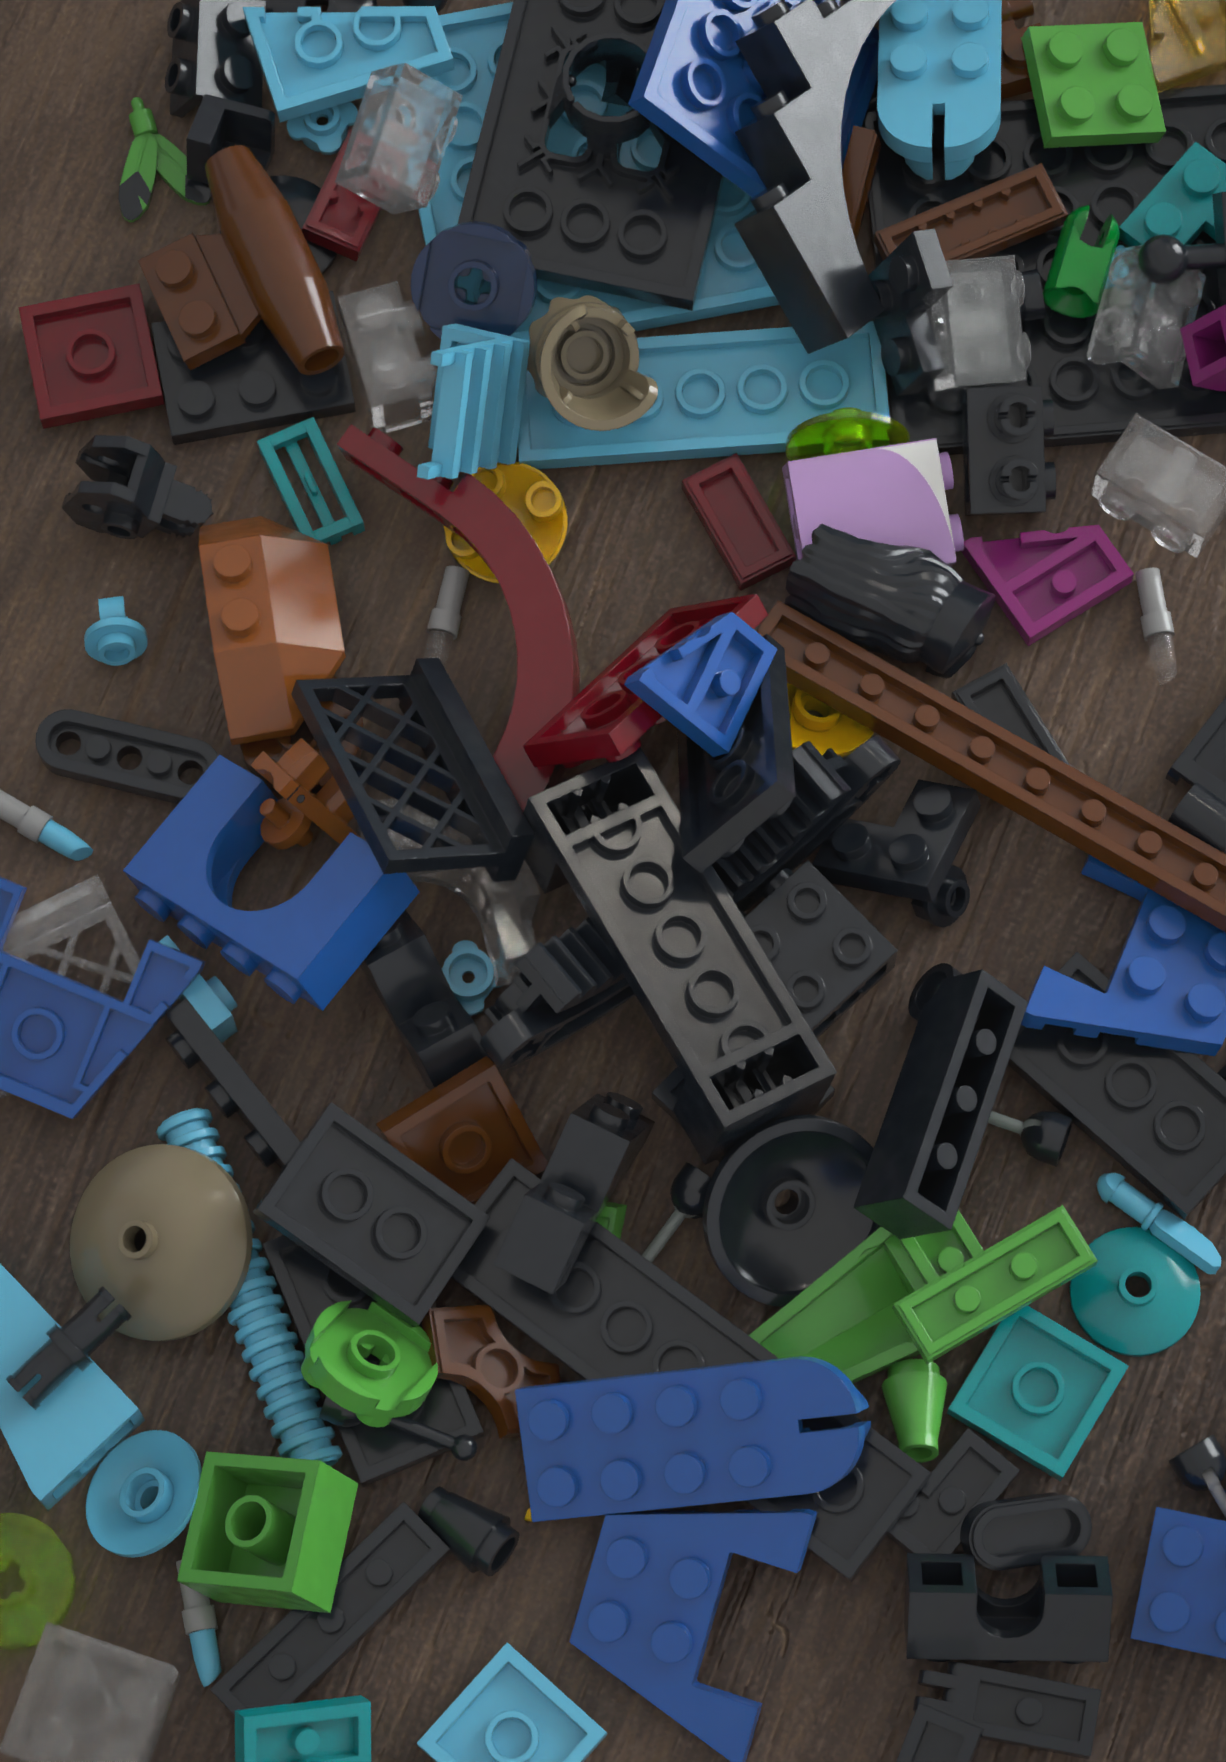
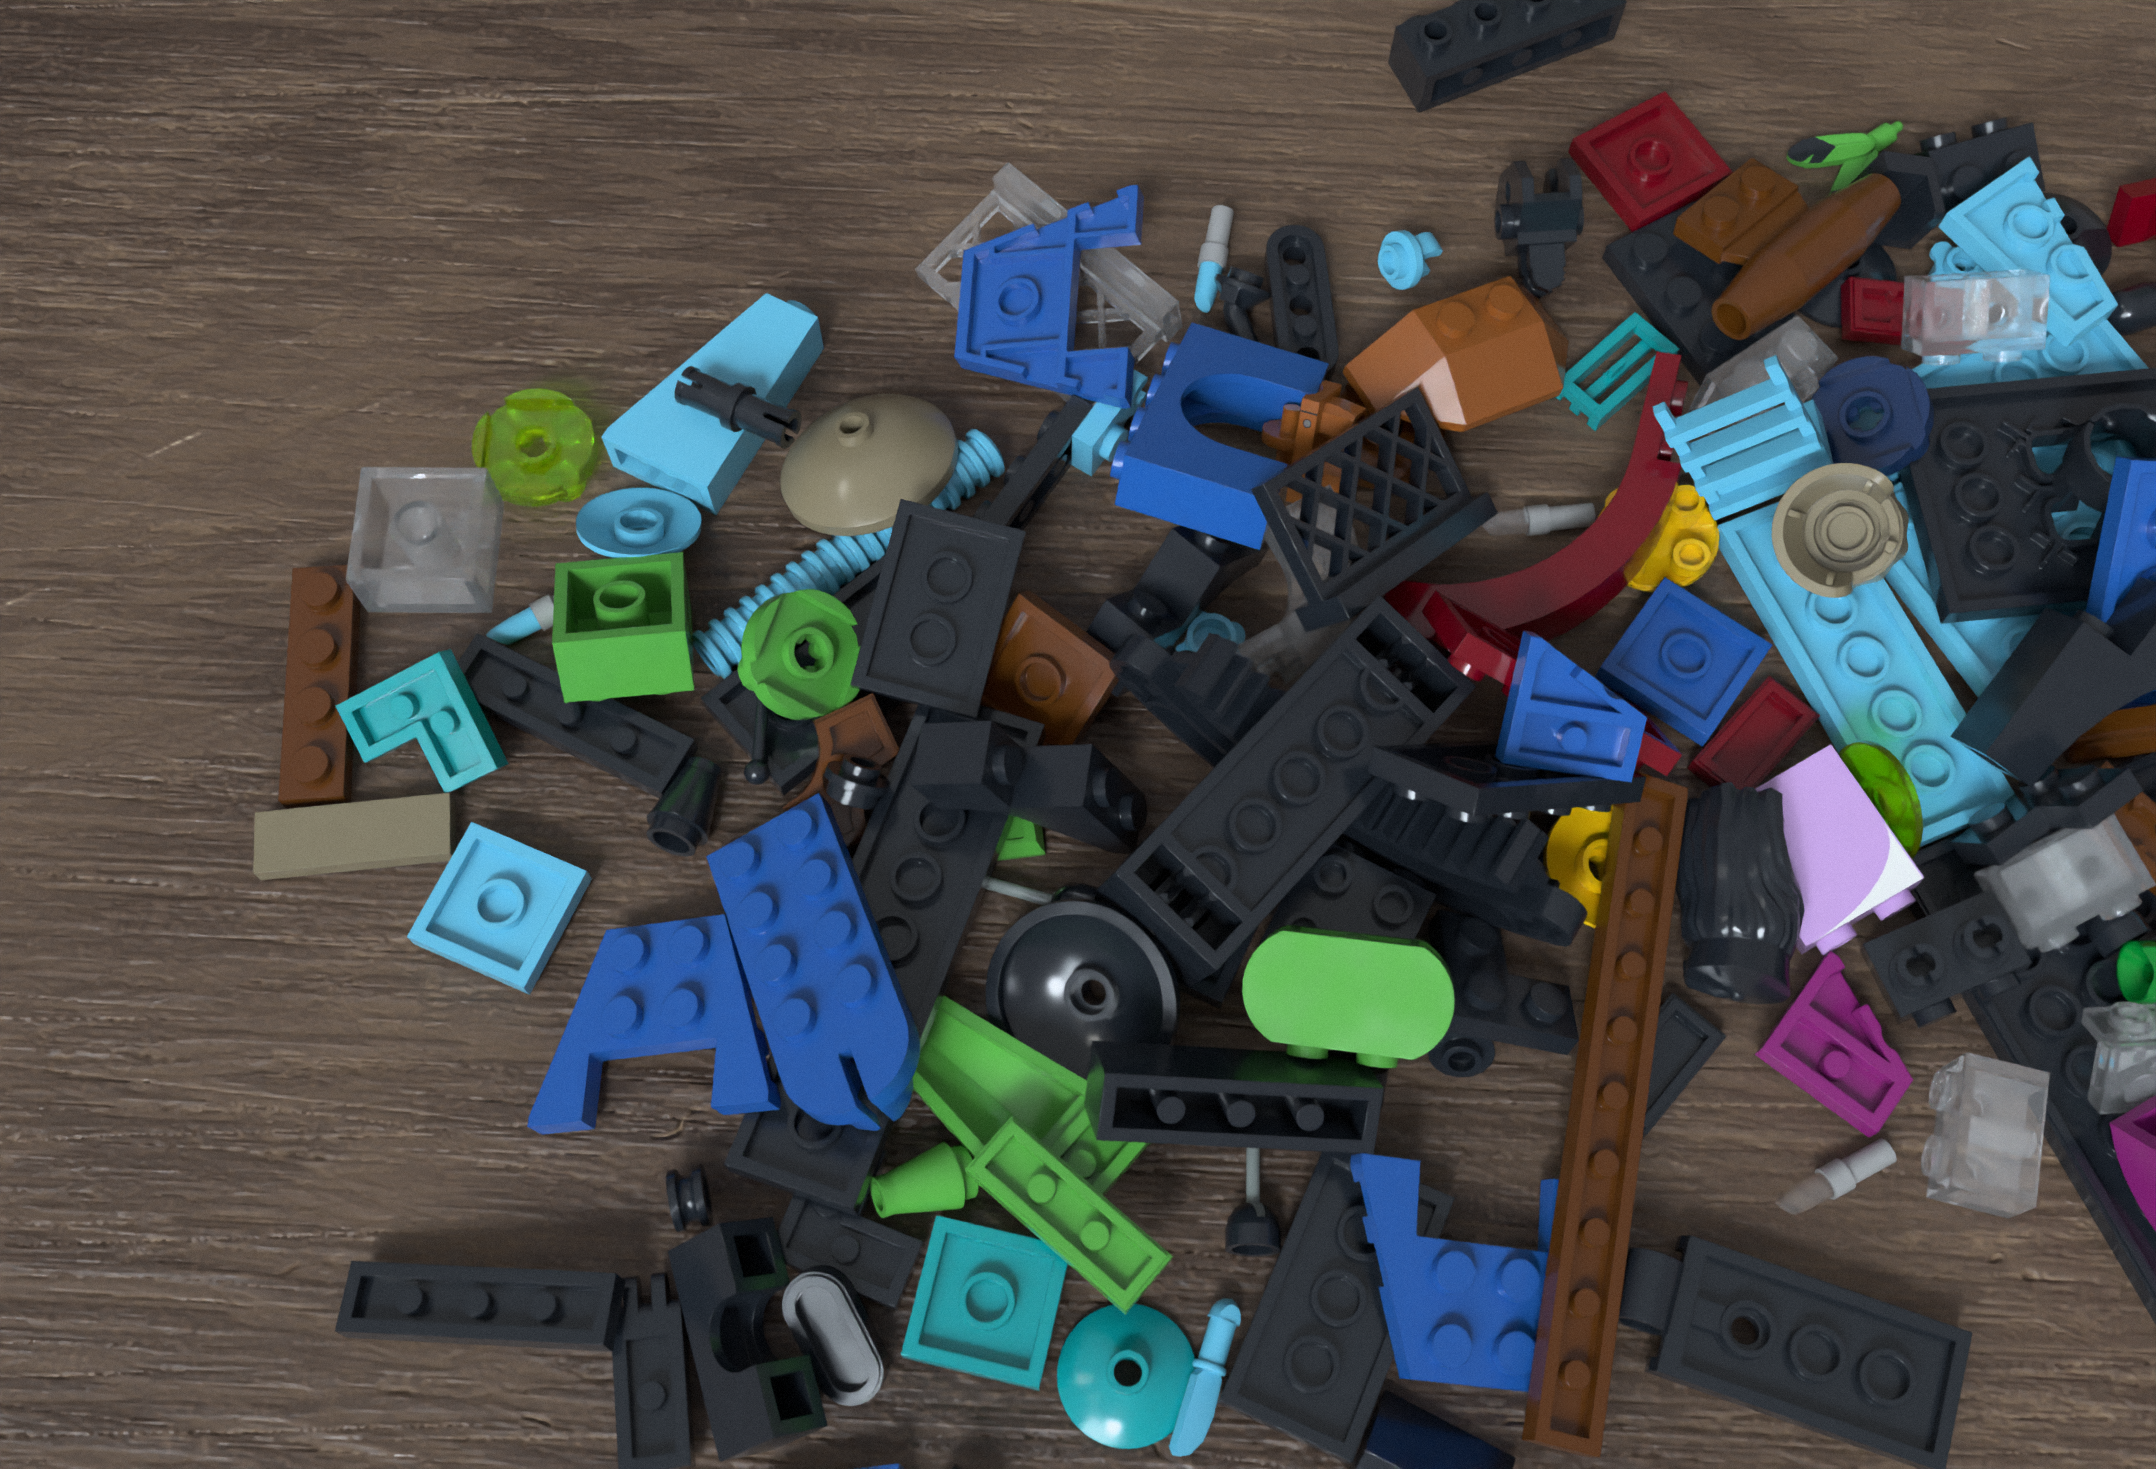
camera: 70 degrees right, 5 degrees down
(93, 810) = (1240, 293): none -> black plate
(516, 1351) = (856, 781): none -> black plate
(642, 550) = (1683, 661): none -> blue plate
(858, 1629) = (689, 1198): none -> black bush
(883, 968) = (1348, 994): none -> bright green brick

